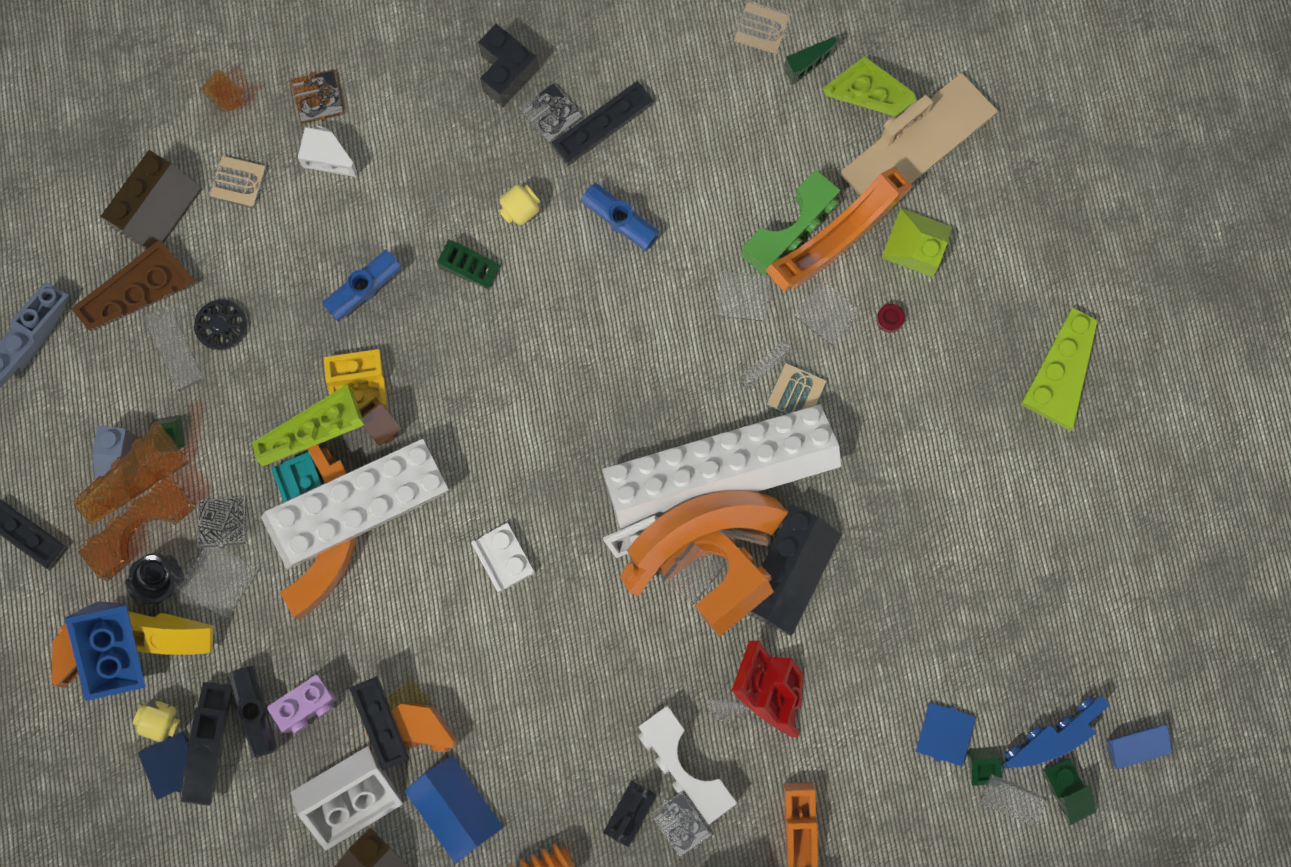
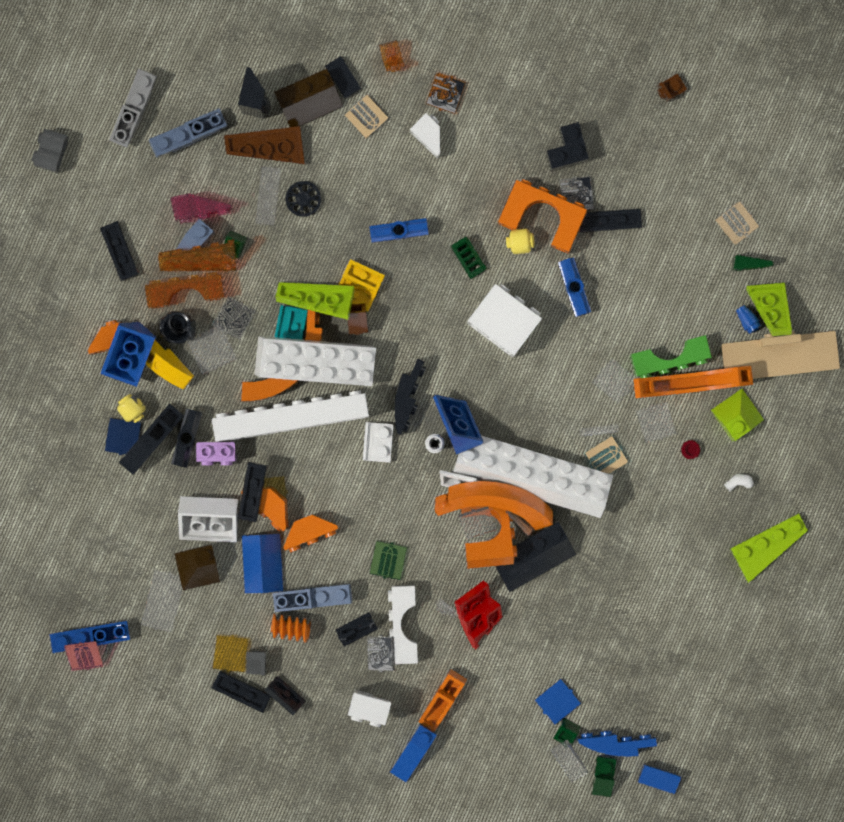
camera: 30 degrees right, 10 degrees up
(75, 236) = (253, 97): none -> black slope
(78, 420) = (192, 206): none -> clear pink slope
(181, 153) = (343, 77): none -> black tile
(369, 596) = (288, 418): none -> white brick
(486, 726) = (307, 531): none -> orange slope
(491, 148) = (525, 196): none -> orange arch
(504, 486) = (404, 403): none -> black slope
(546, 810) = (312, 597): none -> sand blue slope
(560, 305) = (504, 319): none -> white container
(570, 503) = (439, 439): none -> white cone
(586, 465) = (458, 423): none -> blue slope
(612, 698) = (388, 560): none -> clear green piece
(853, 124) = (748, 319): none -> blue cone
(979, 311) = (739, 479): none -> white arm

